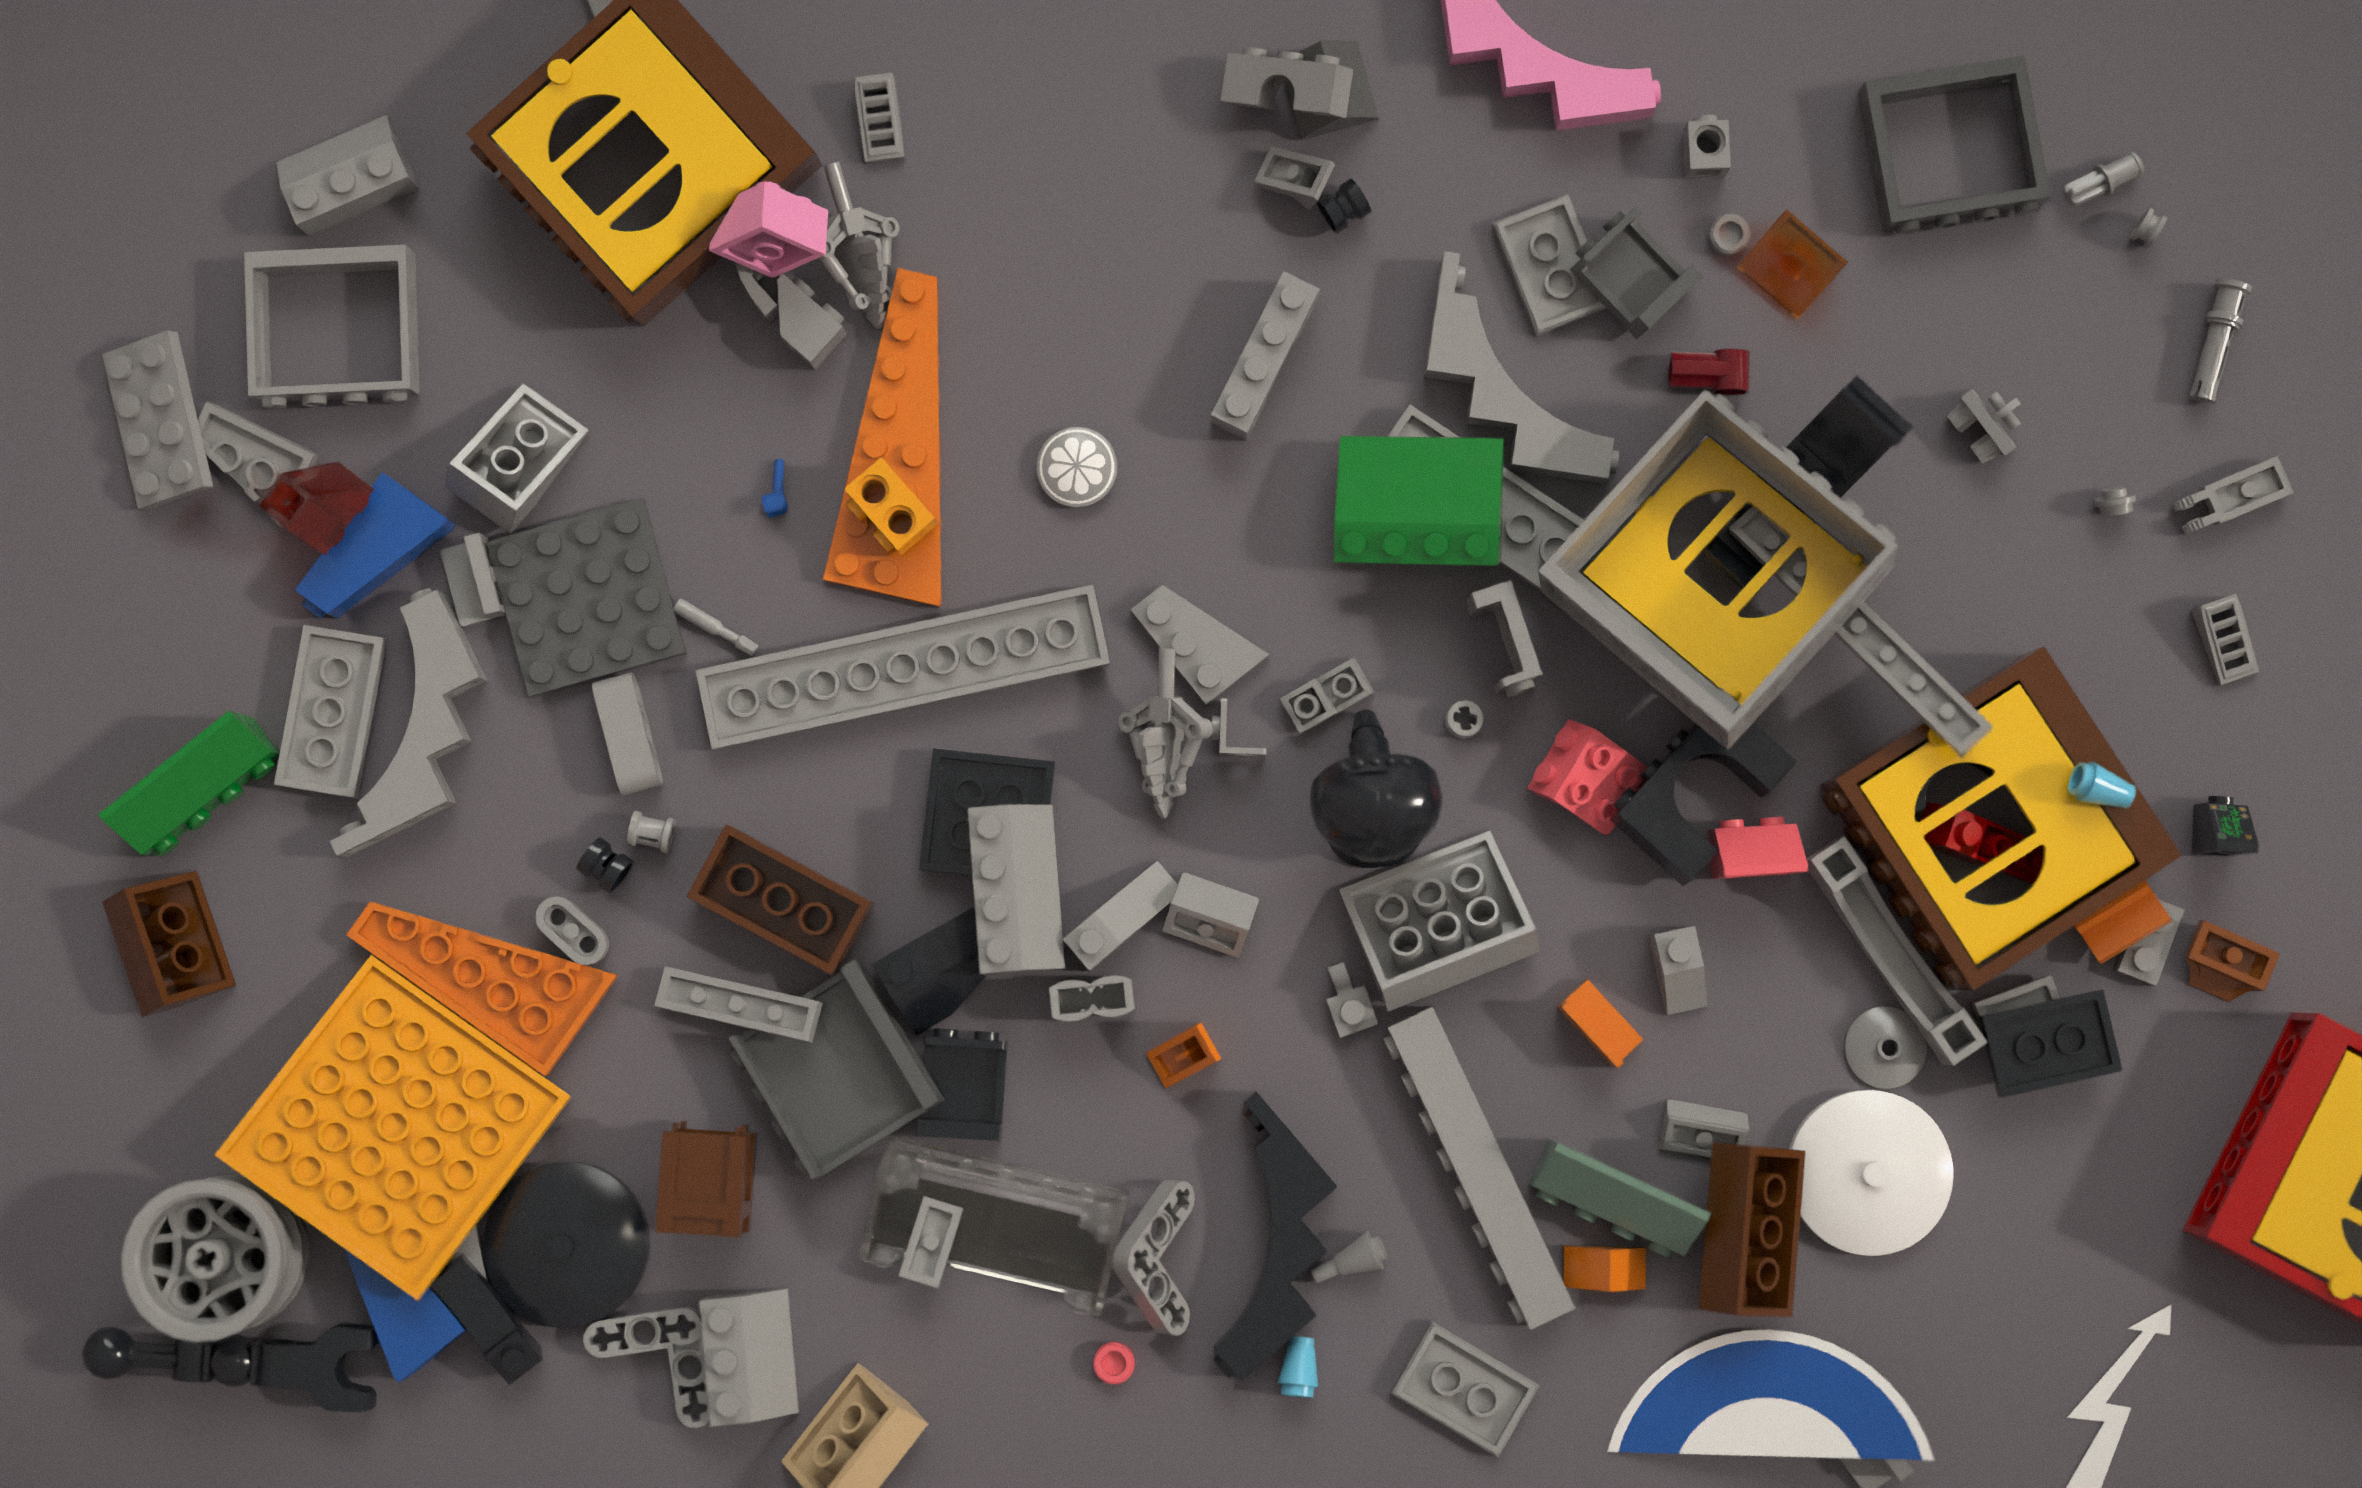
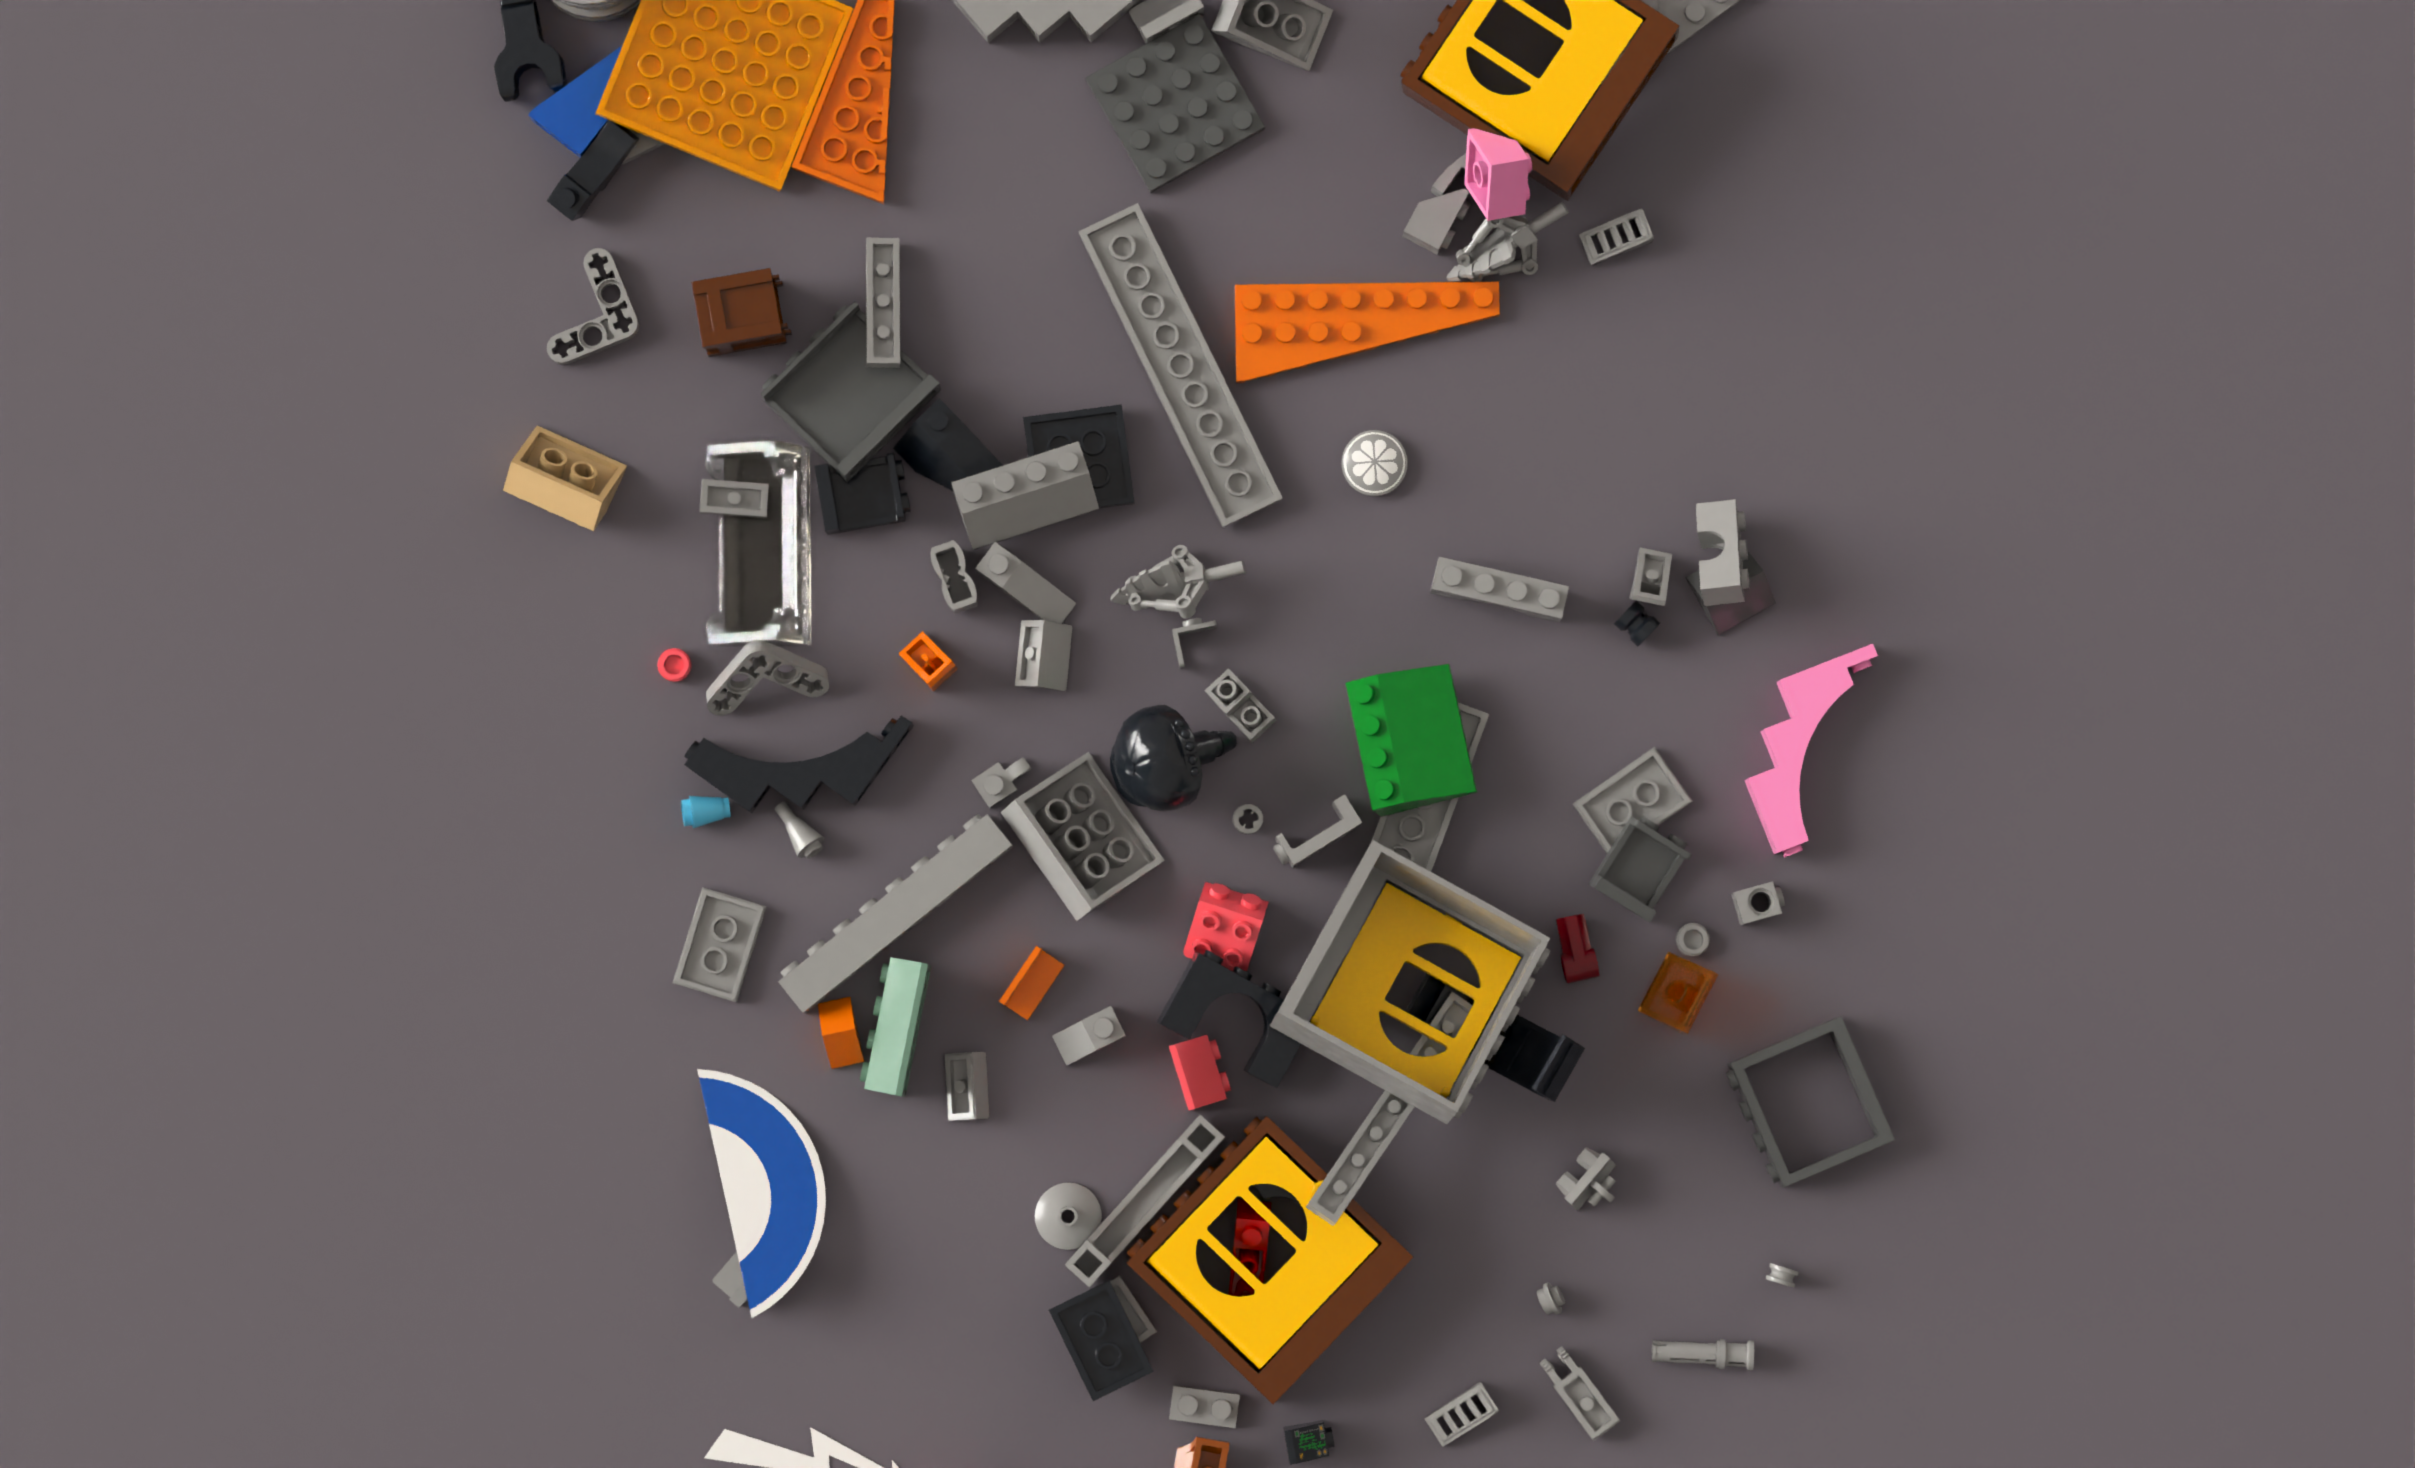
camera: 70 degrees right, 0 degrees up
(566, 1244) = (664, 216): black dish -> none
(573, 931) = (908, 159): light grey plate -> none
(604, 865) = (967, 171): black wheel -> none
(627, 733) = (1074, 162): light grey beam -> none
(651, 832) = (1001, 201): light grey bush -> none
(713, 626) = (1176, 208): light grey piece -> none
(749, 1356) = (612, 379): light grey slope -> none
(776, 503) = (1286, 232): blue hand -> none
(780, 899) = (972, 315): reddish brown brick -> none
(897, 501) = (1309, 326): light orange brick -> none
(1205, 649) = (1253, 597): light grey wing -> none
(1463, 355) = (1540, 746): light grey arch -> none
(1752, 1230) = (897, 1137): reddish brown brick -> none
(1872, 1172) = (965, 1224): white dish -> none
(2099, 786) = (1311, 1322): medium azure cone -> none
(2103, 179) = (1812, 1230): light grey axle -> none
(2123, 922) = (1213, 1377): orange panel -> none

